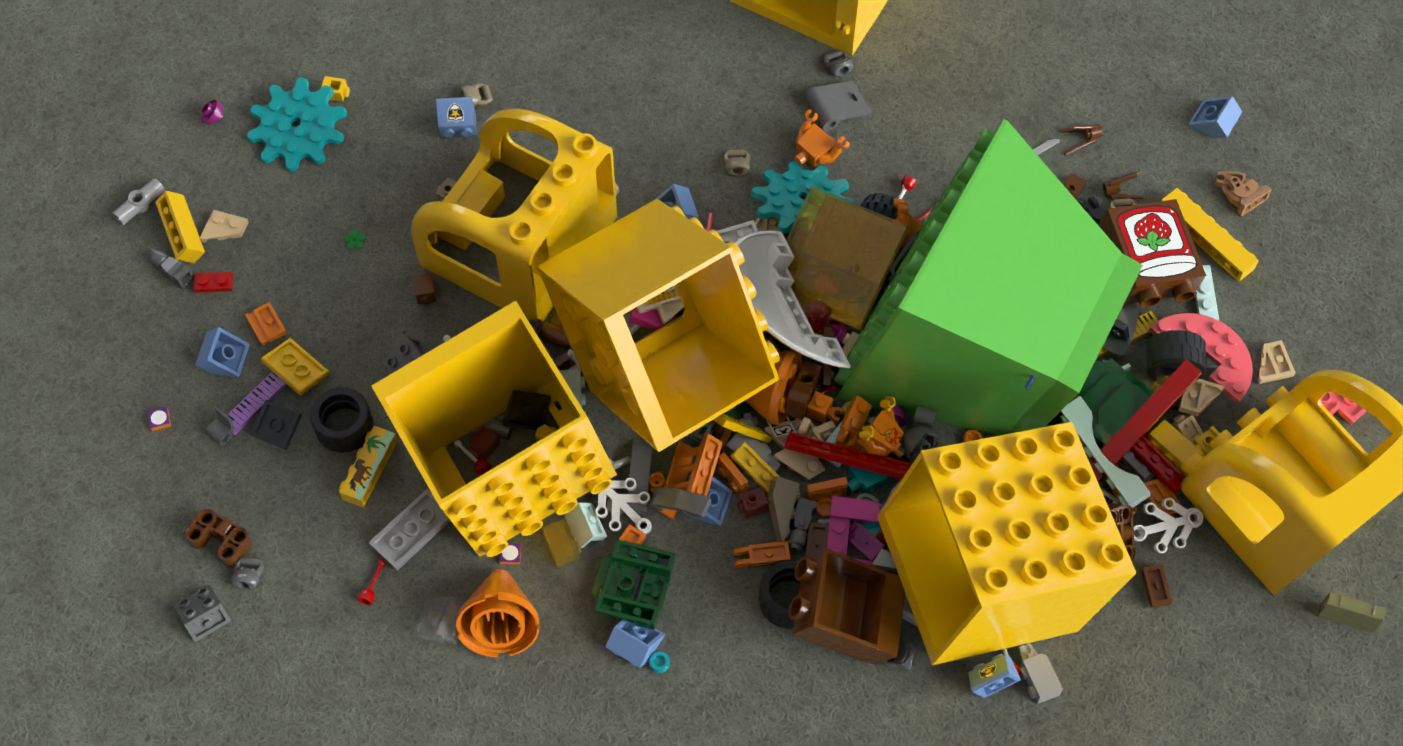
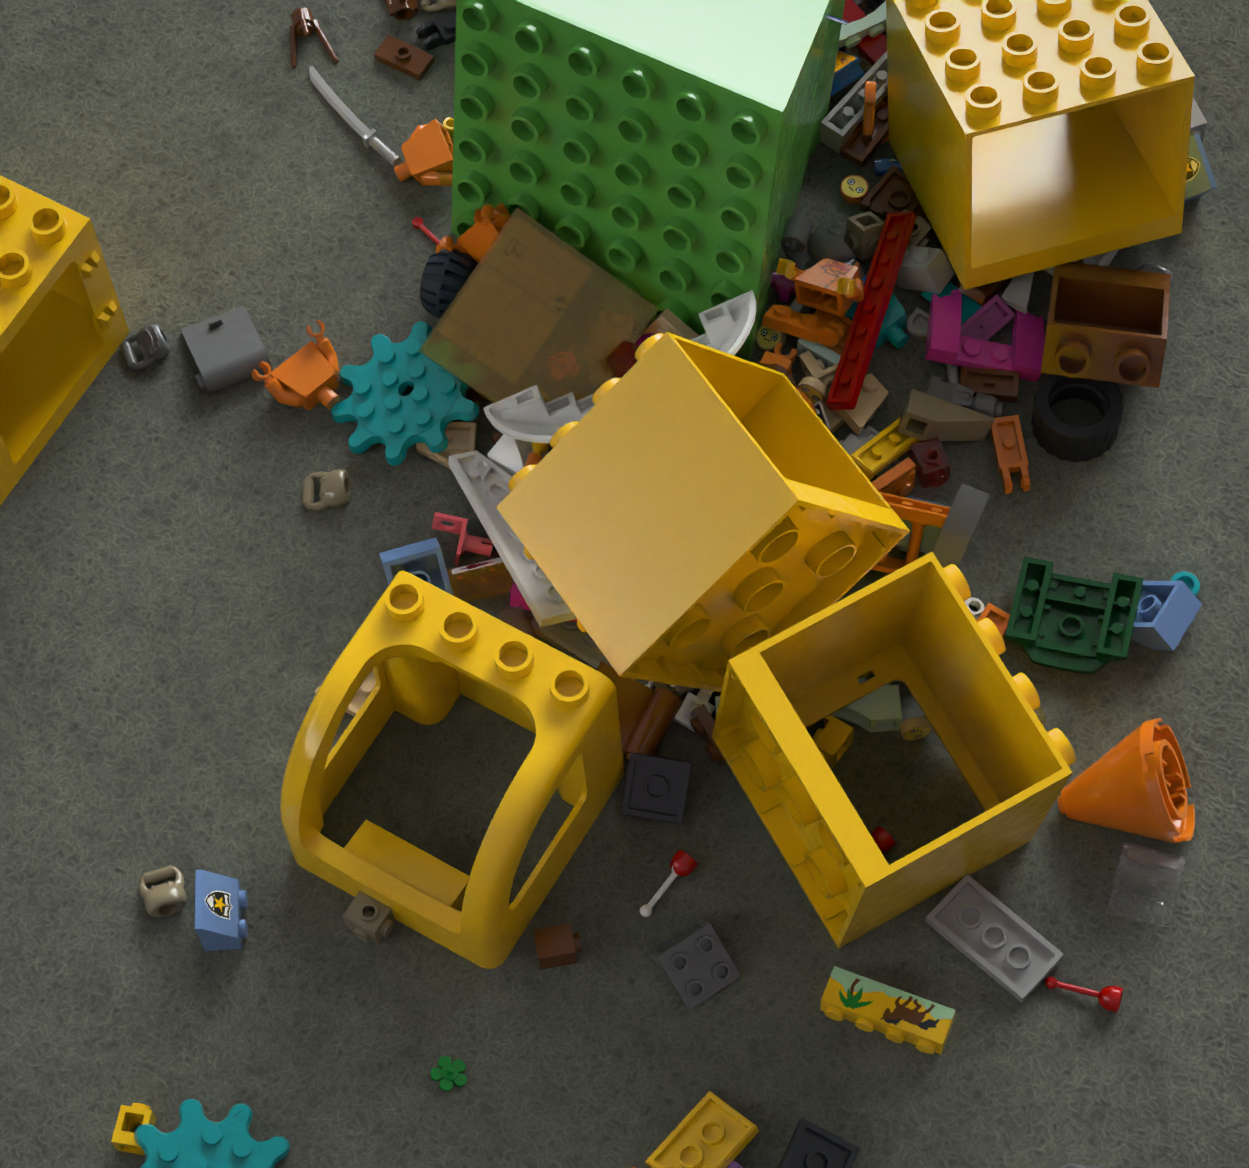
camera: 85 degrees left, 0 degrees up
(332, 401) = (817, 1017): black tyre -> none
(824, 507) = (925, 371): orange tile -> none
(827, 489) = (906, 360): orange plate -> none
(907, 184) = (383, 259): red hinge -> none
(972, 435) = (815, 193): orange tile -> none

